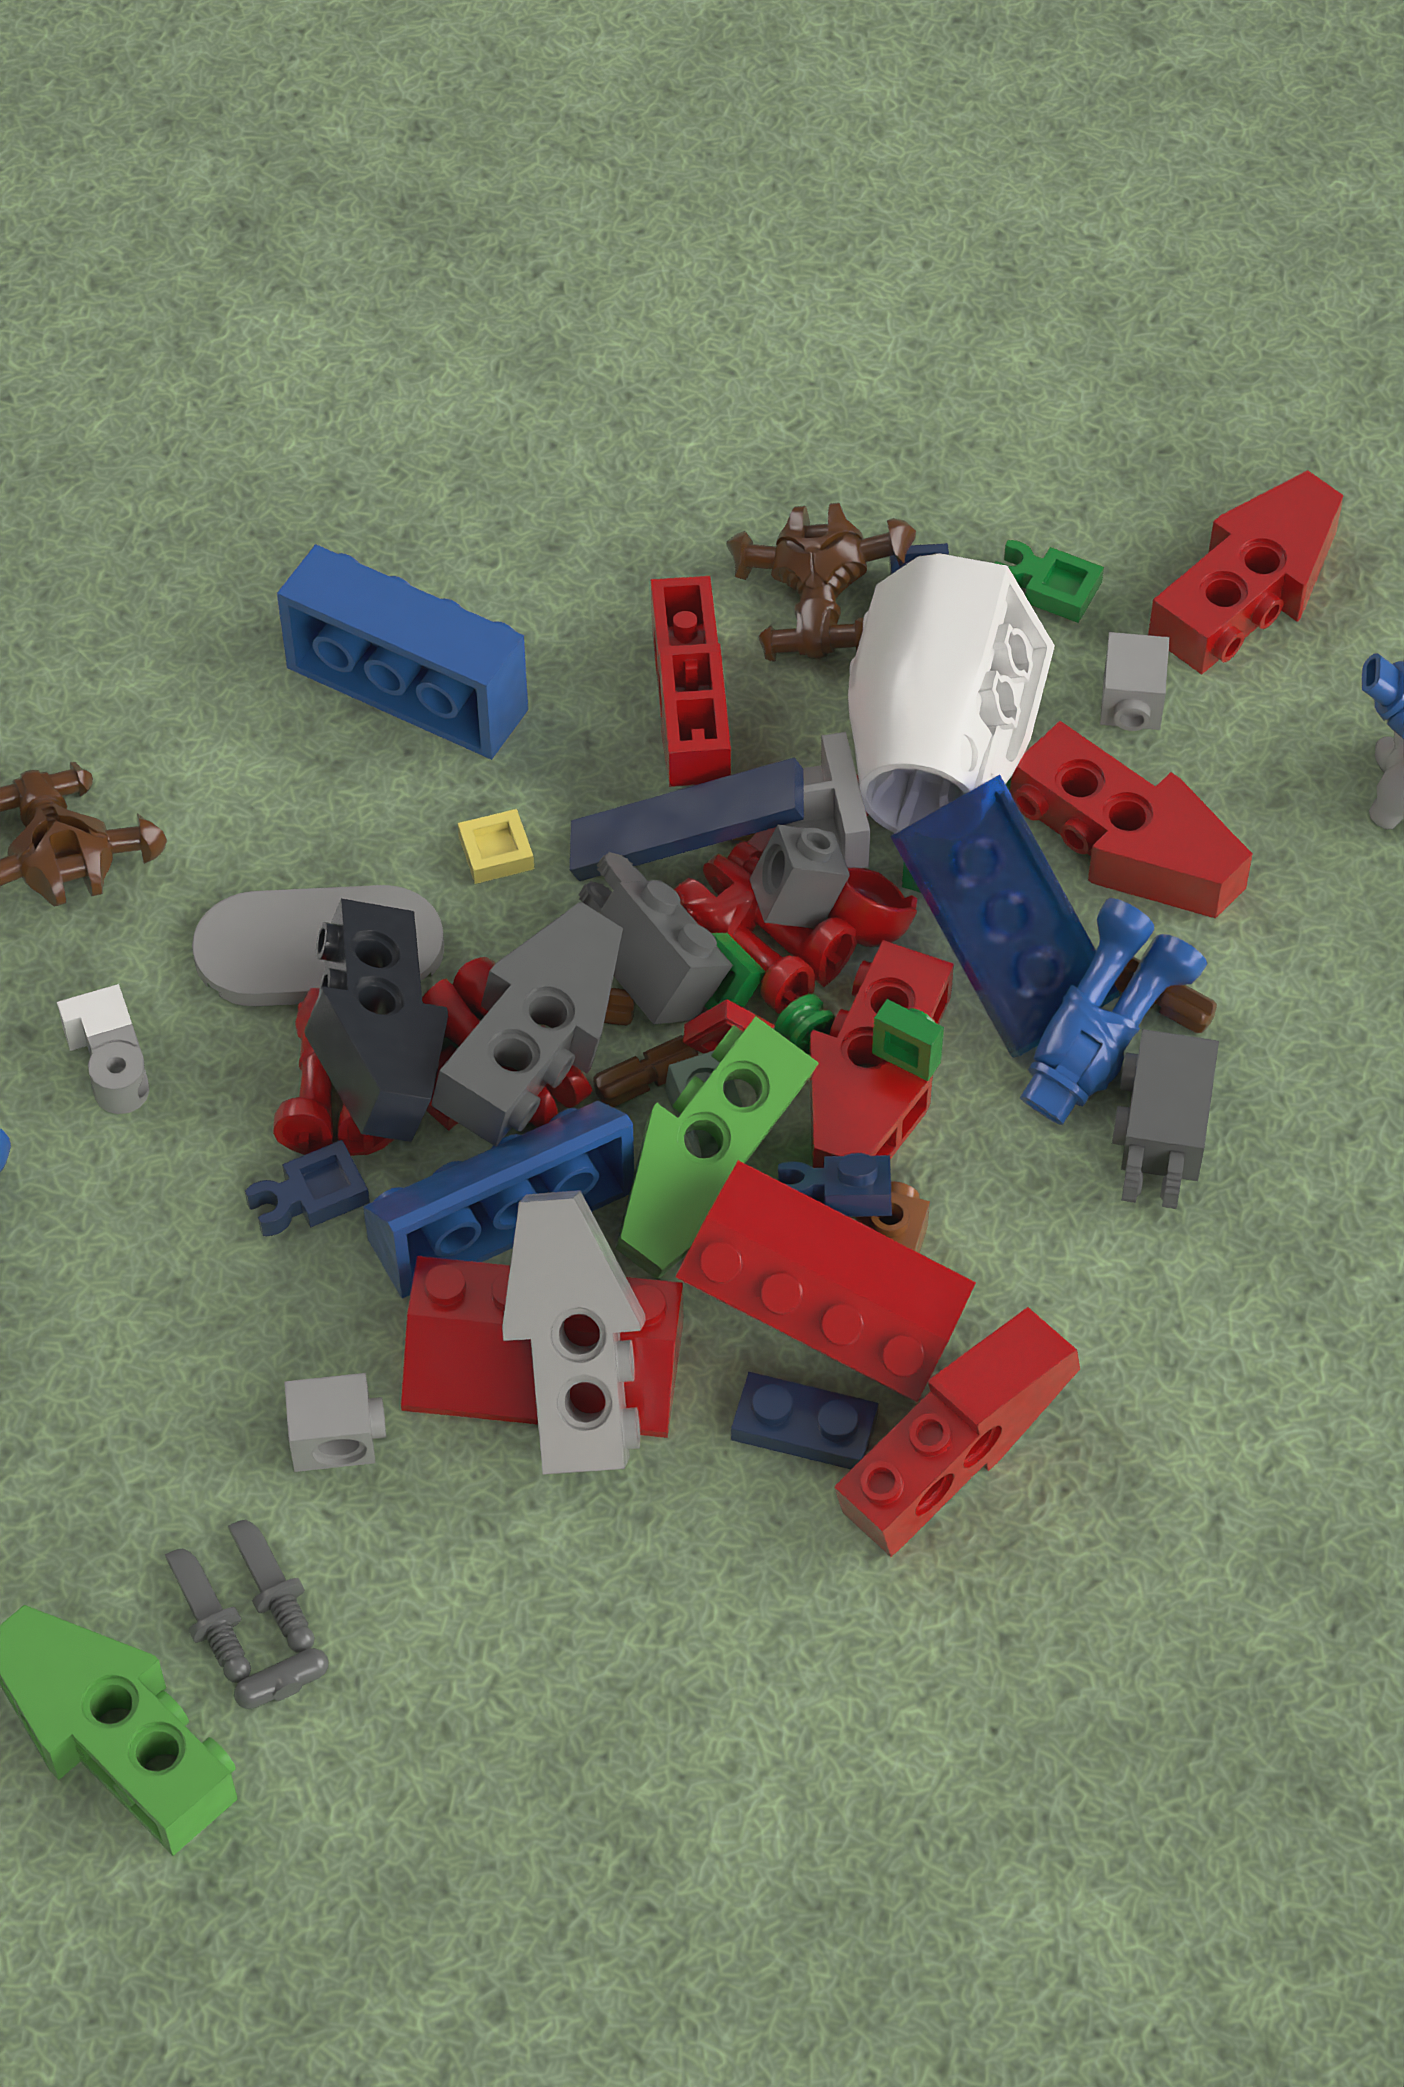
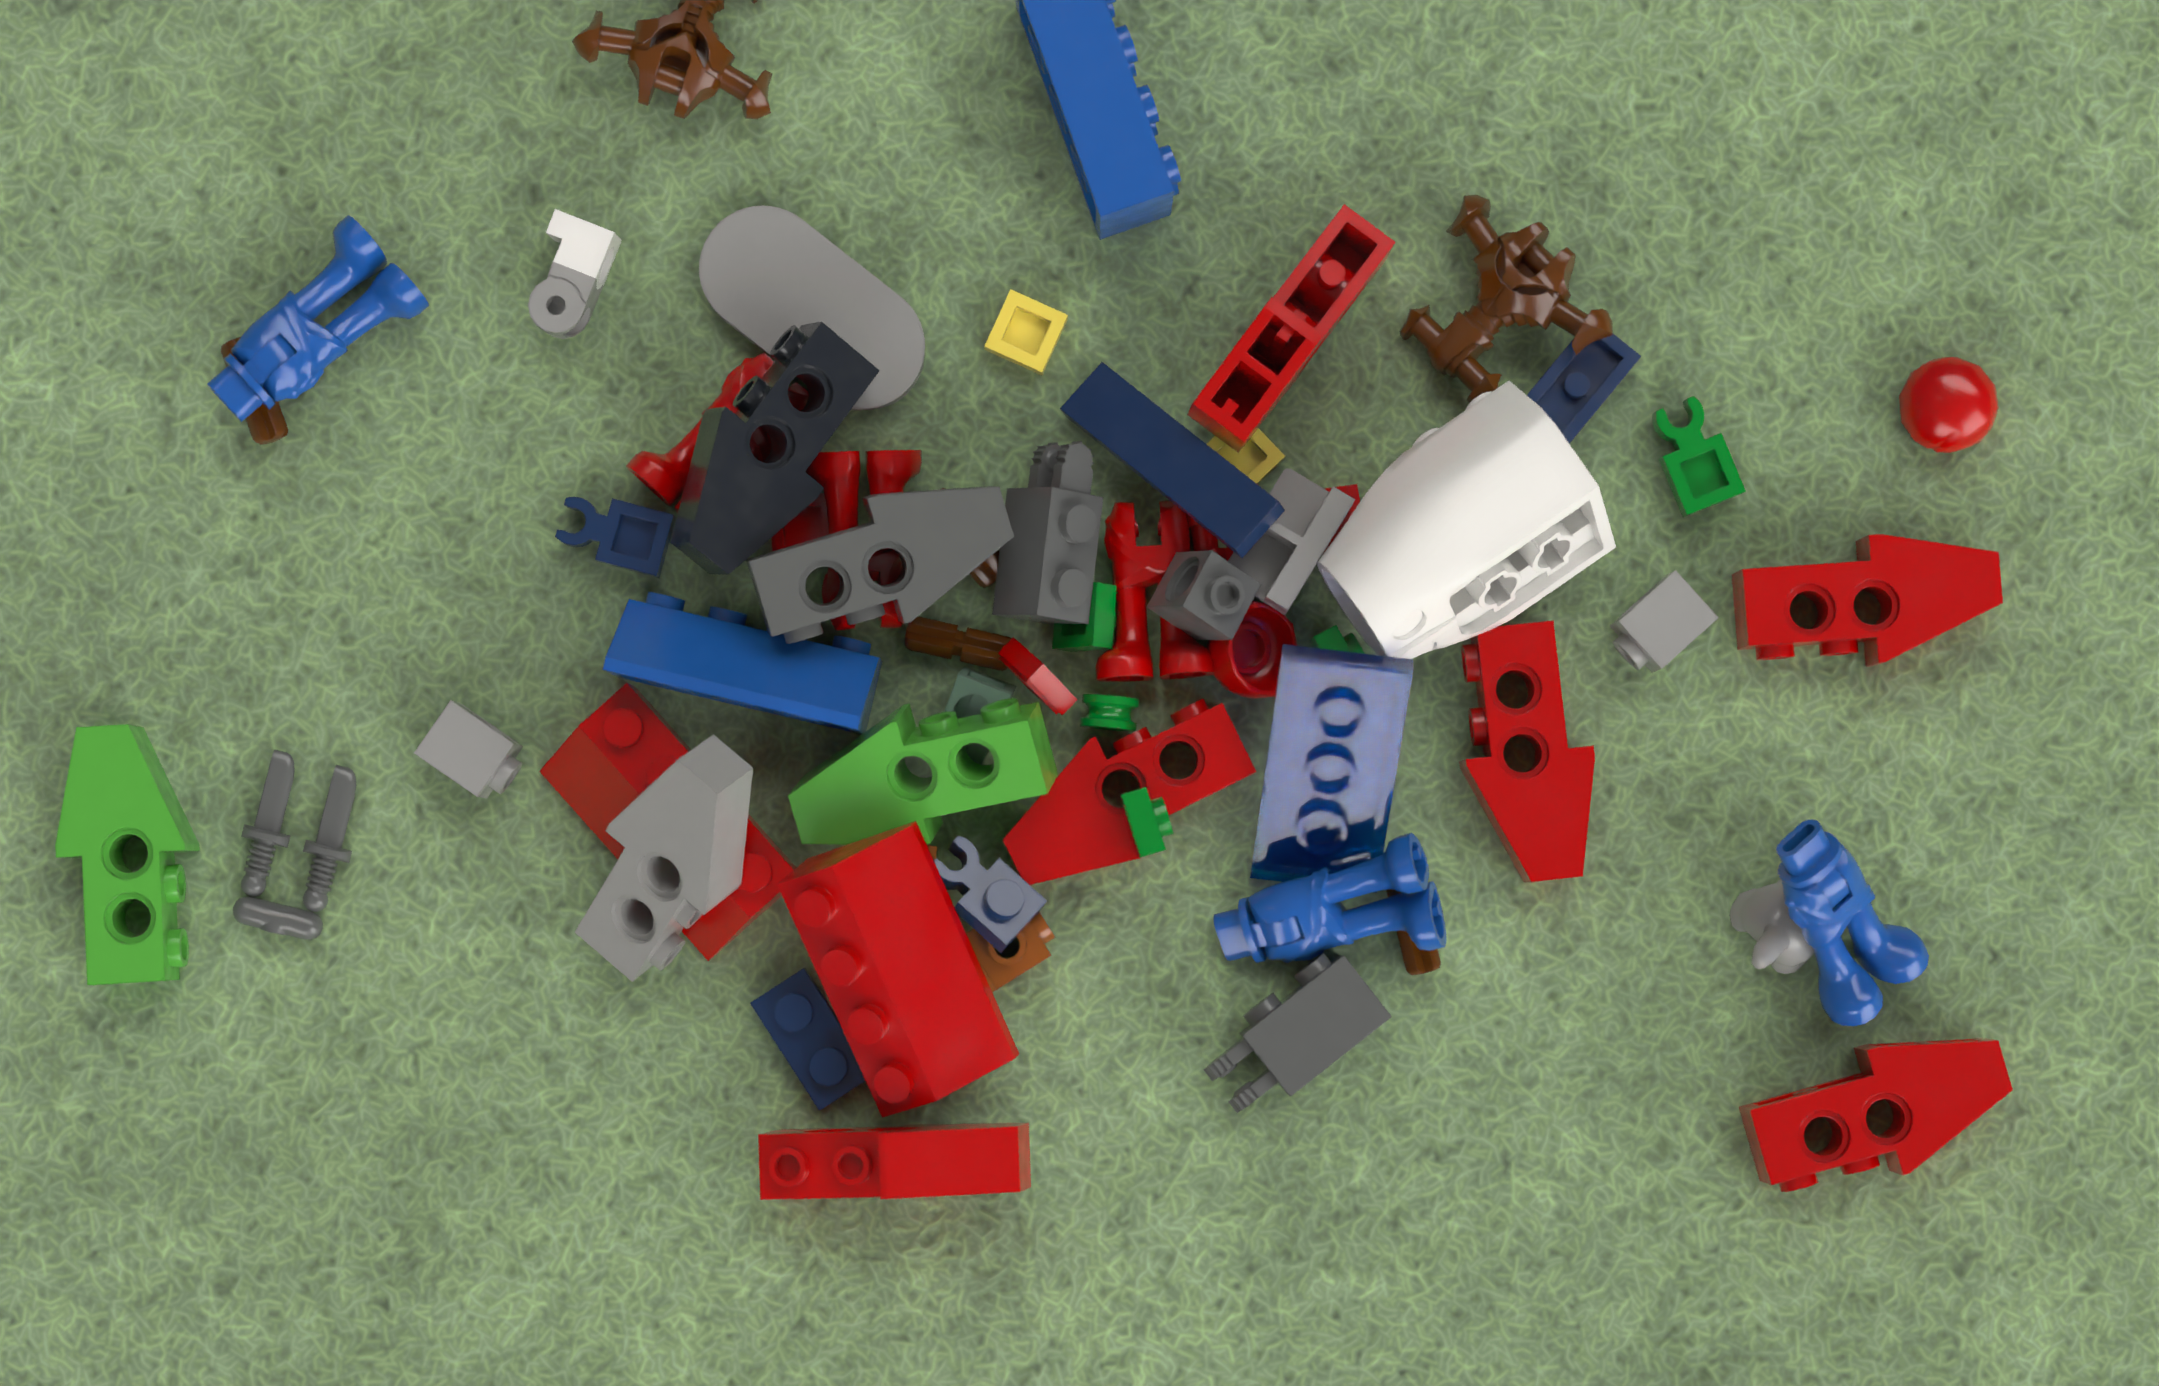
camera: 40 degrees right, 30 degrees up
(1179, 433) = (1948, 404): none -> red hair

